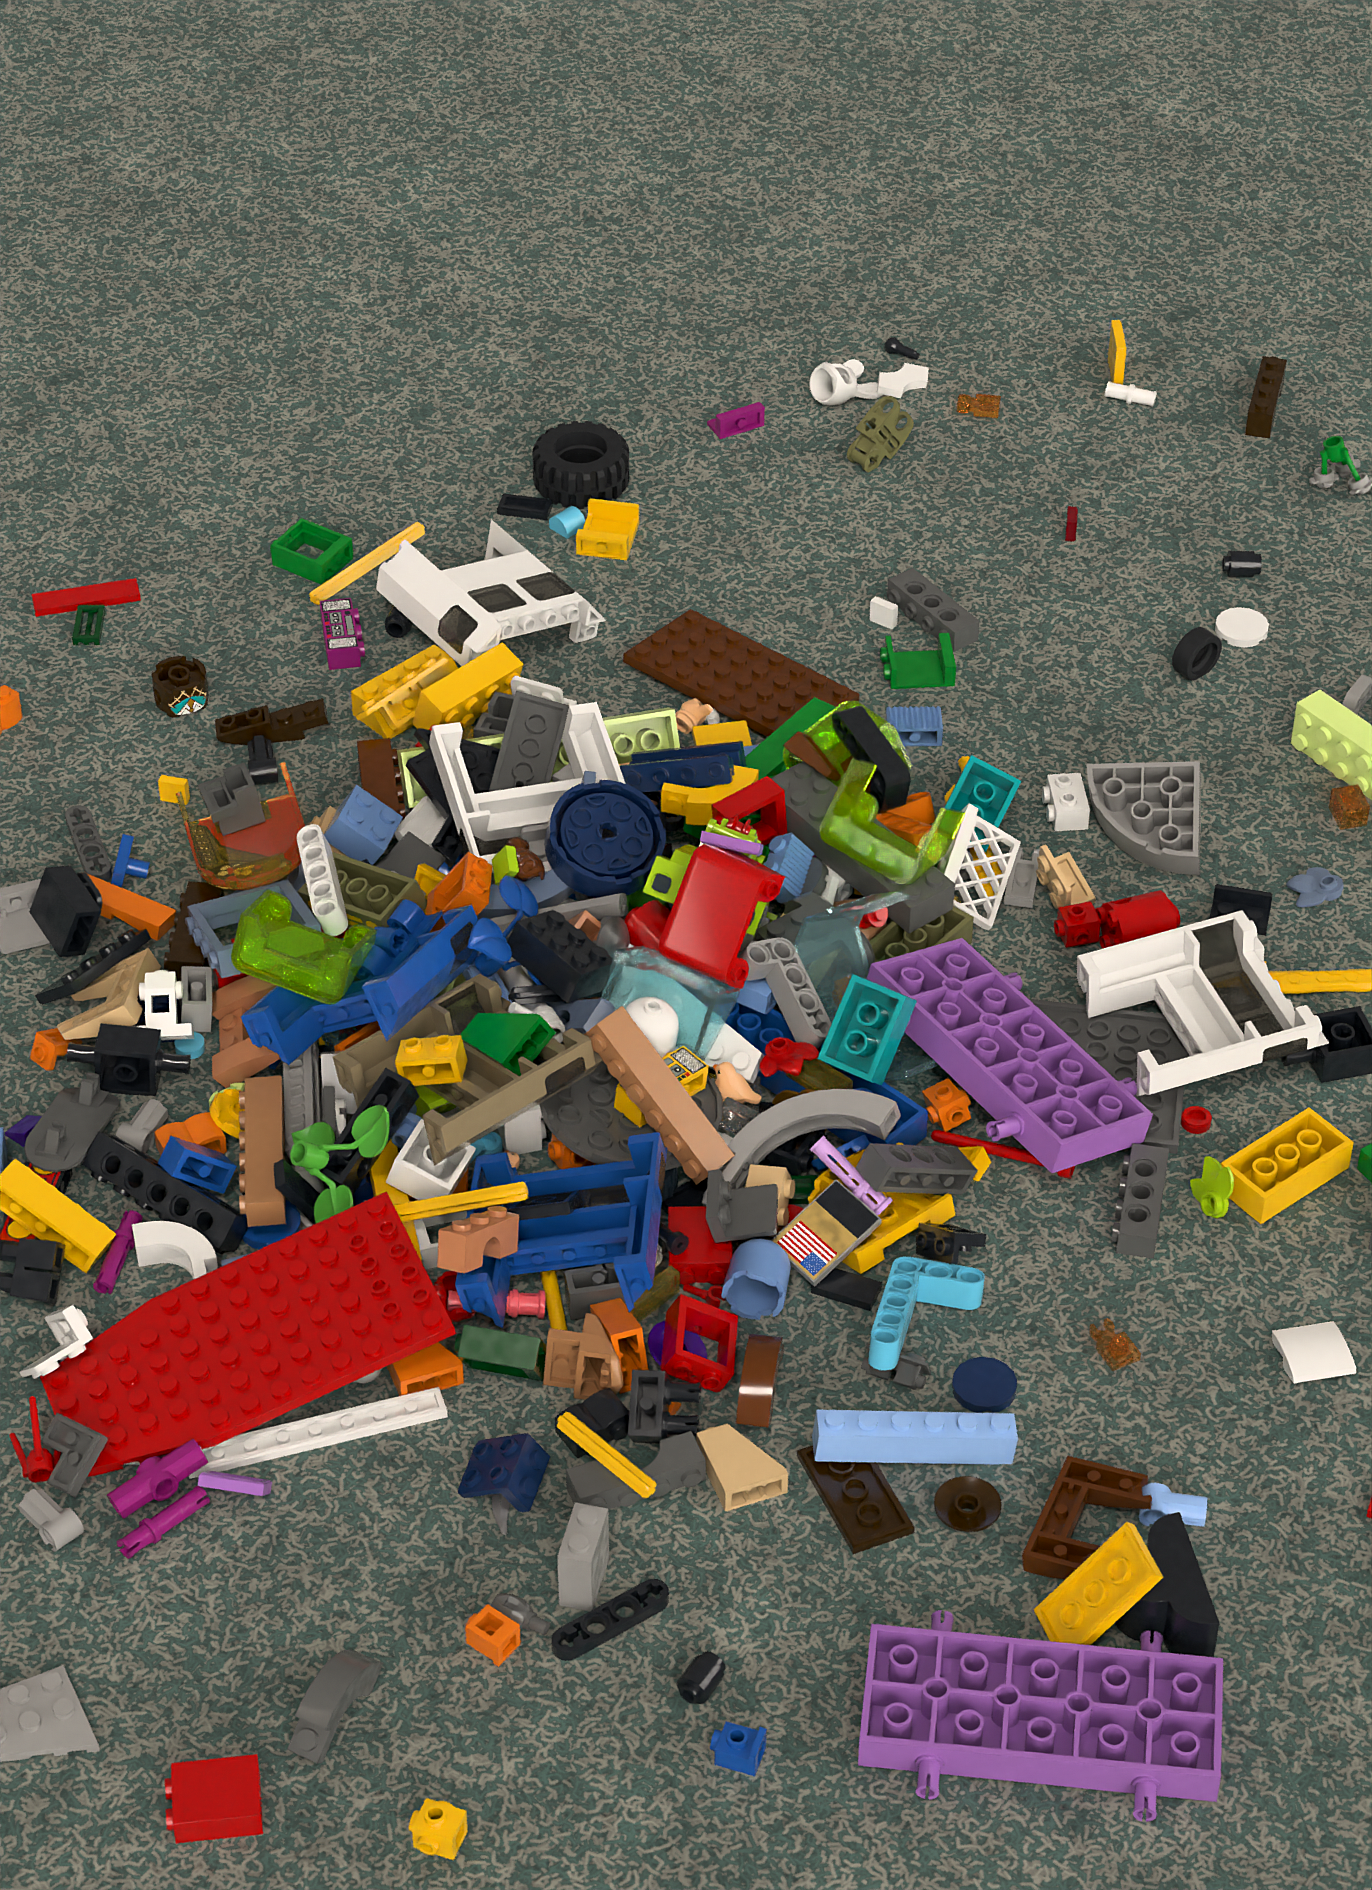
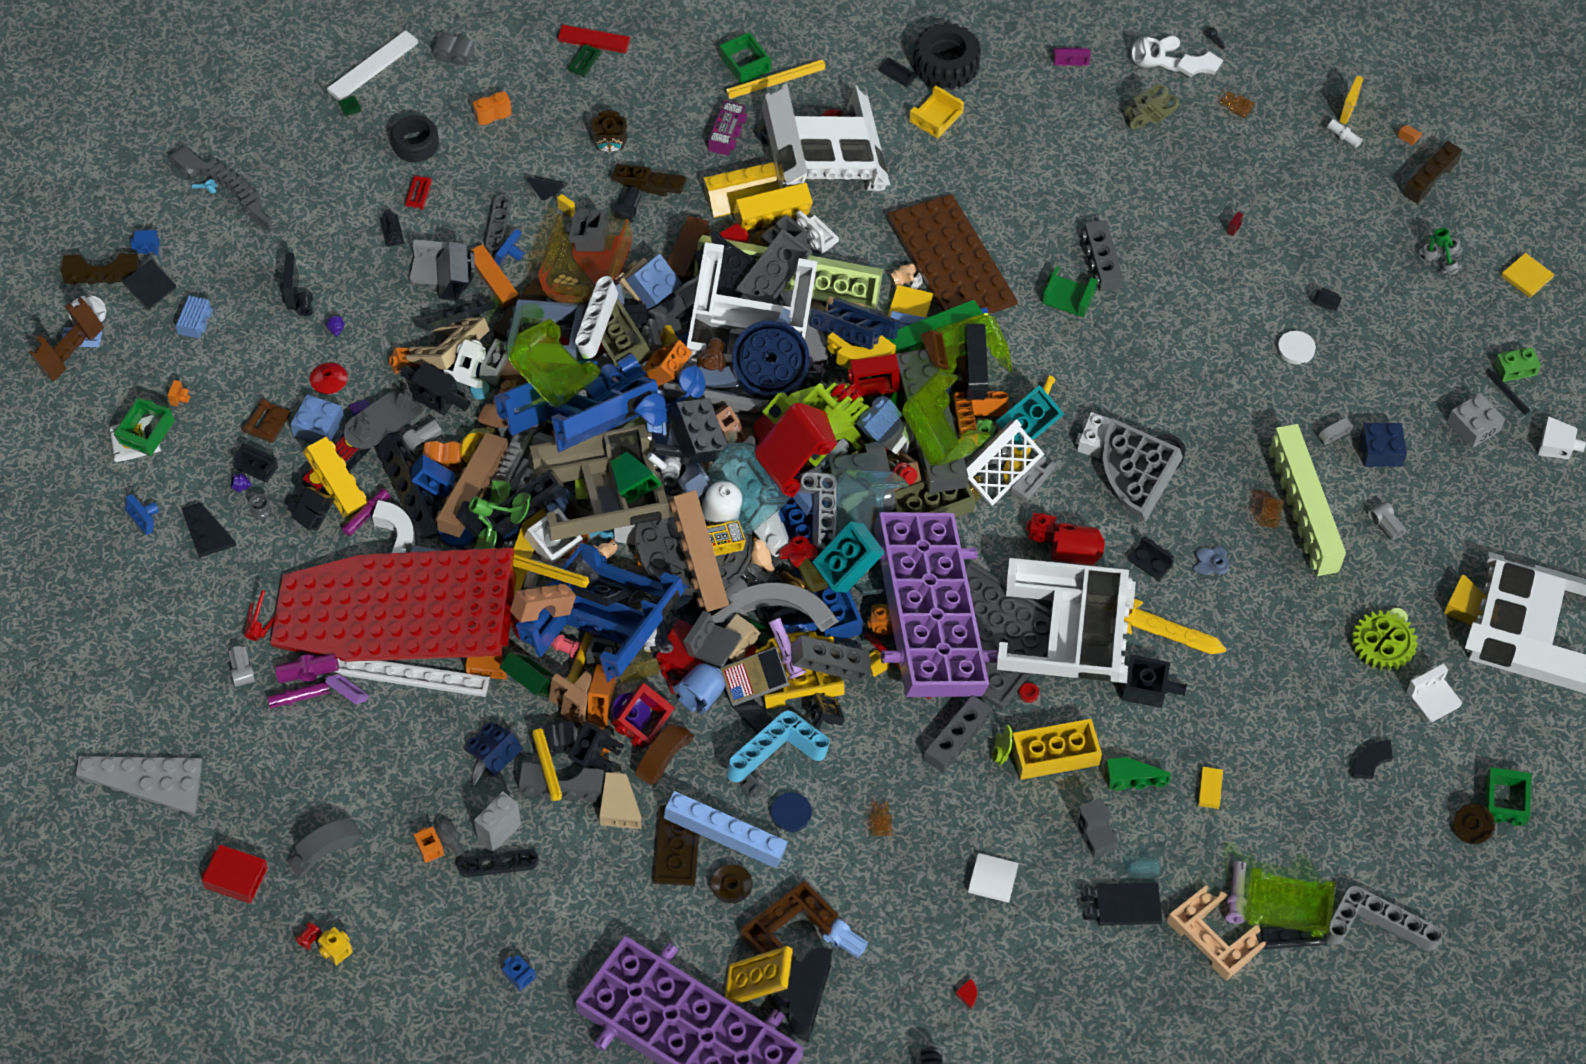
camera: 25 degrees right, 15 degrees up
(70, 1331) = (303, 565): white bracket -> none
(80, 1451) = (275, 633): dark grey tile -> none
(131, 780) = (546, 187): none -> black slope
(386, 1835) = (308, 936): none -> red bush
(401, 702) = (726, 197): yellow bracket -> none
(432, 1060) = (582, 472): yellow brick -> none
(505, 863) = (697, 356): lime tile -> none
(567, 522) = (916, 95): medium azure brick -> none
(613, 934) = (739, 430): flat silver dish -> none
(701, 1678) = (523, 921): black brick -> none
(731, 843) = (821, 406): medium lavender tile -> none
(883, 612) = (1070, 245): white tile -> none
(917, 725) = (1035, 339): medium blue brick -> none
(1062, 879) = (1052, 494): tan bracket -> none
(1196, 653) = (1247, 359): black tyre -> none
(1206, 373) = (1409, 134): none -> orange slope

